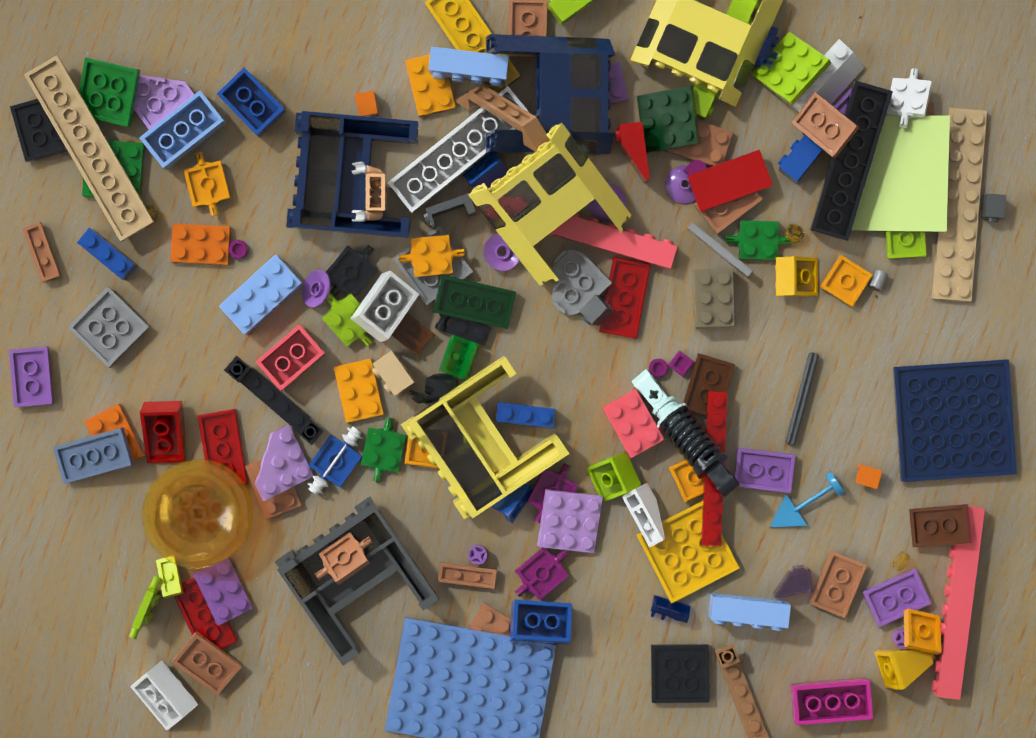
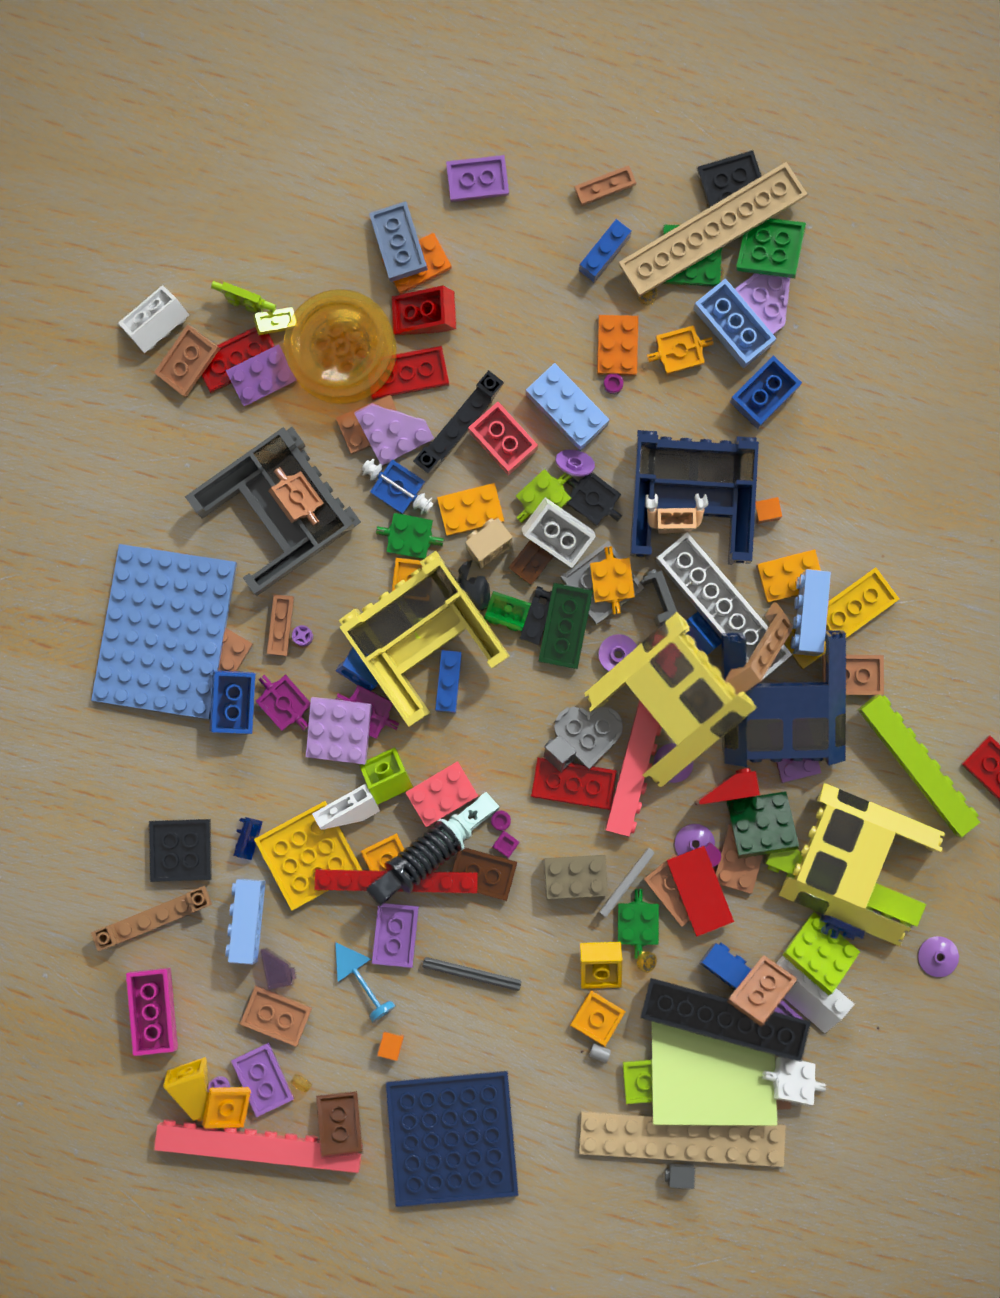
camera: 90 degrees right, 5 degrees down
(108, 327) = (530, 254): light grey plate -> none

